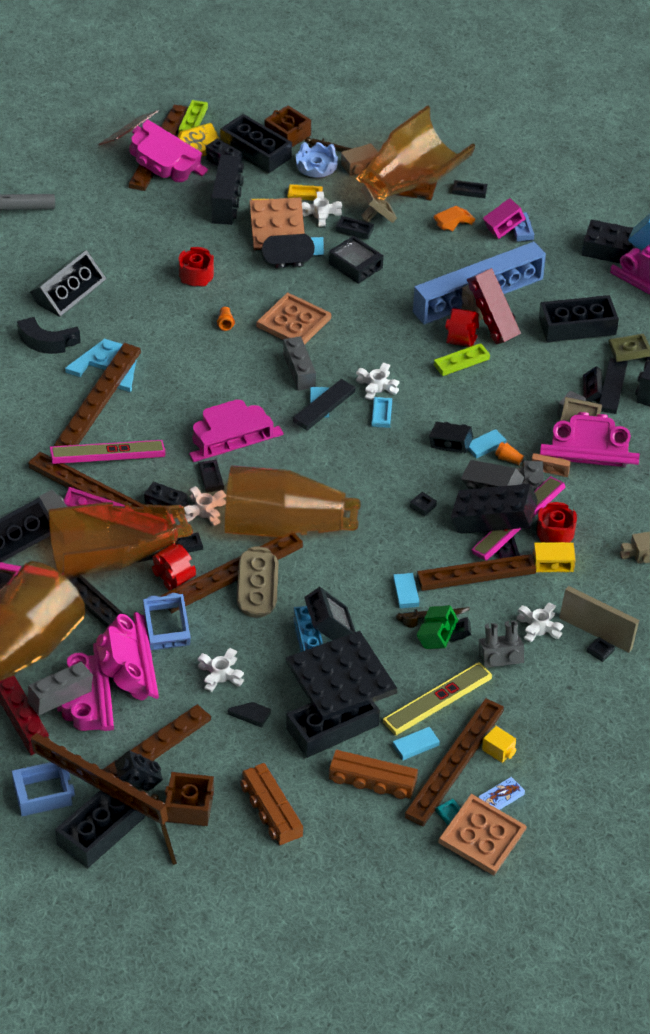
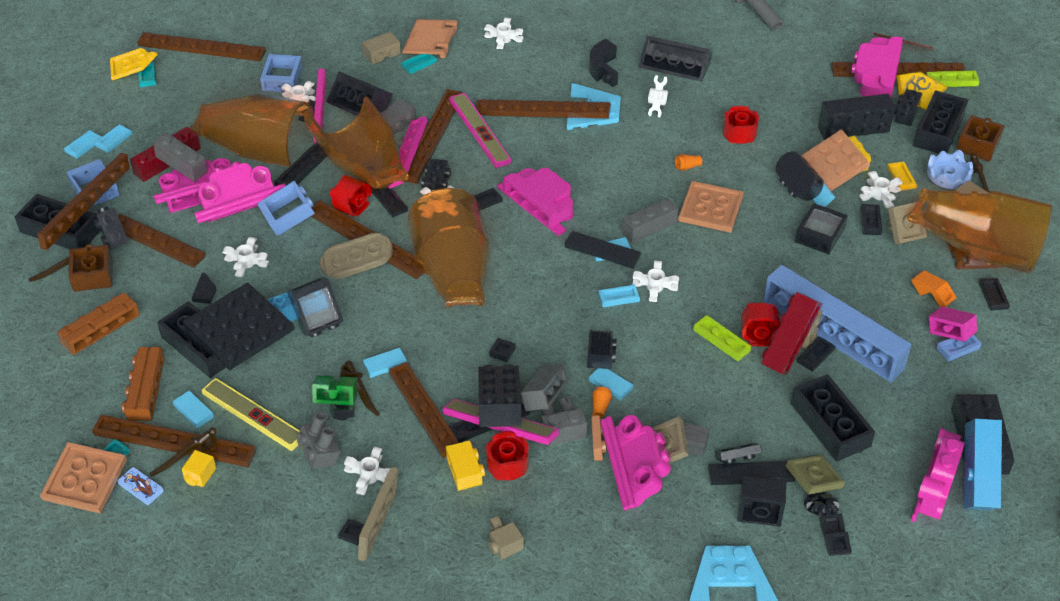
camera: 75 degrees right, 0 degrees up
(130, 308) = (657, 96): none -> white pin
(472, 730) = (205, 441): none -> dark brown sword

